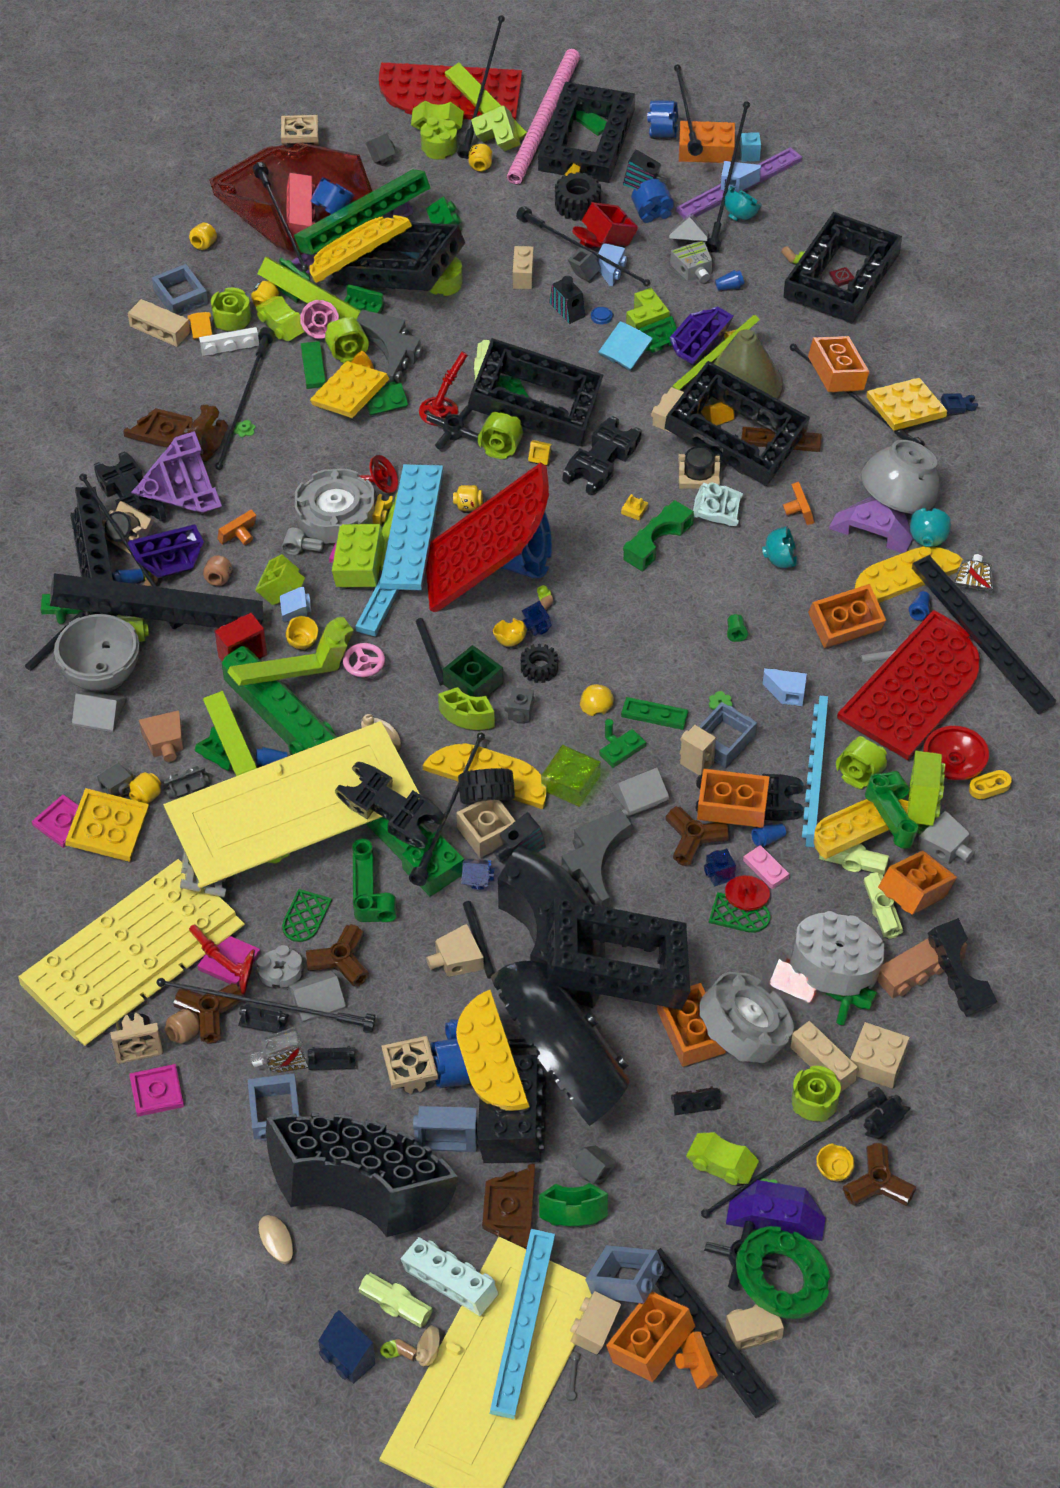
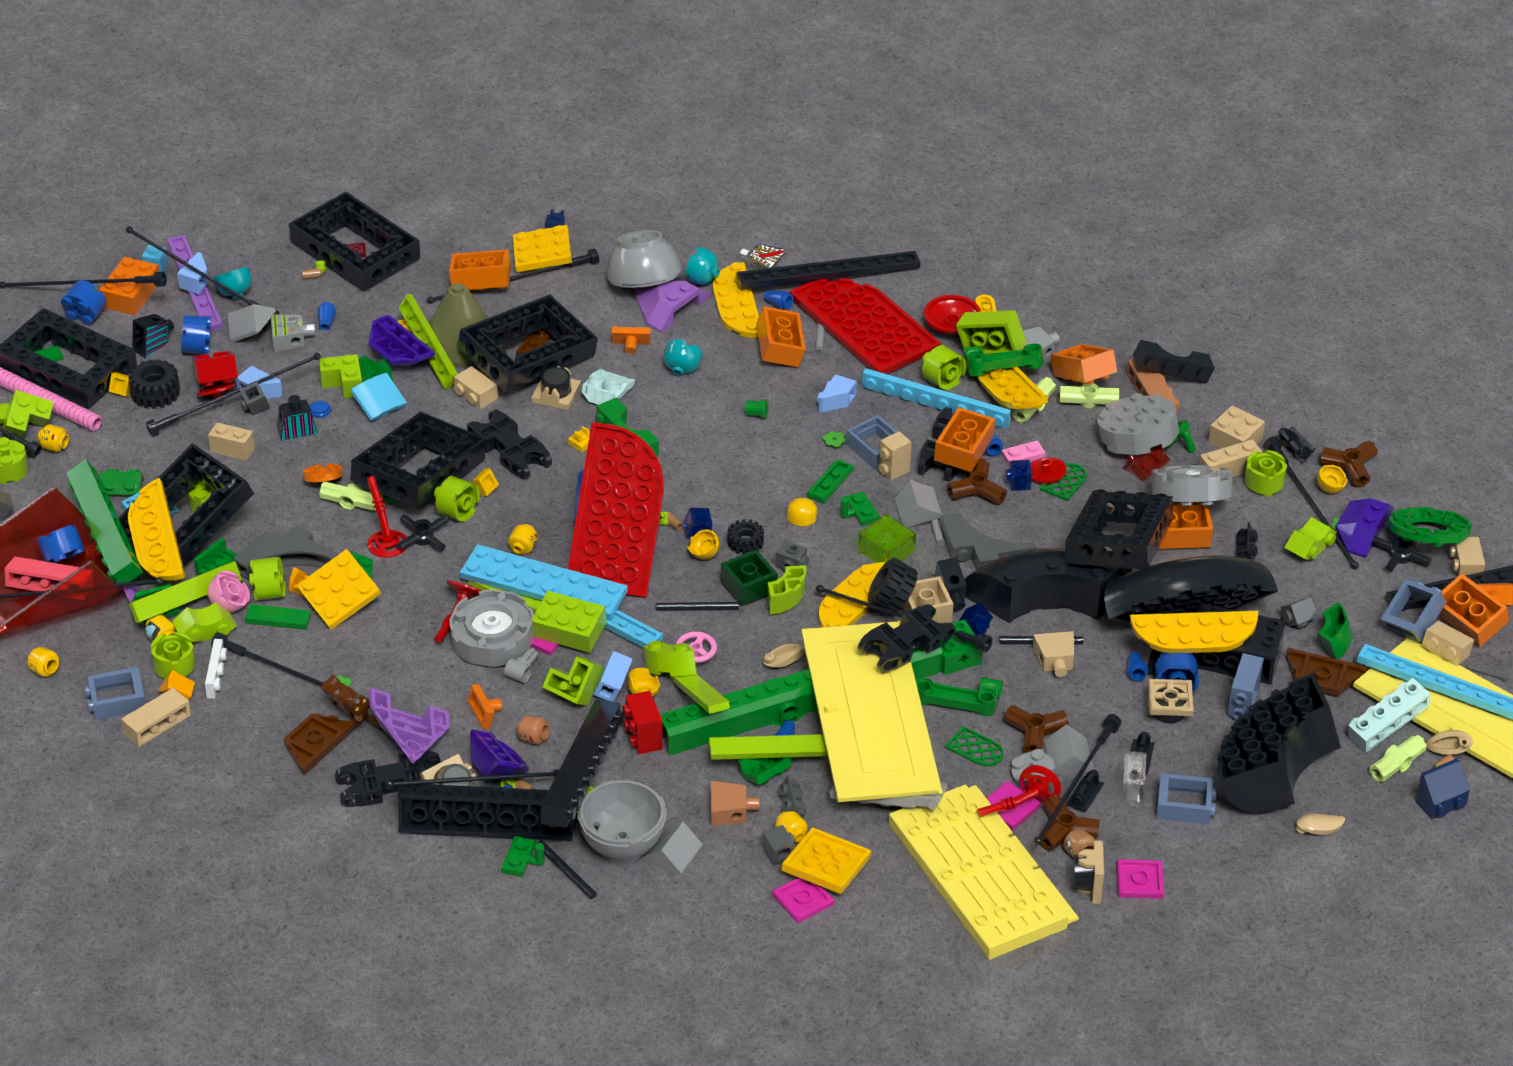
camera: 75 degrees left, 10 degrees down
(505, 334) = (320, 474): none -> orange tile

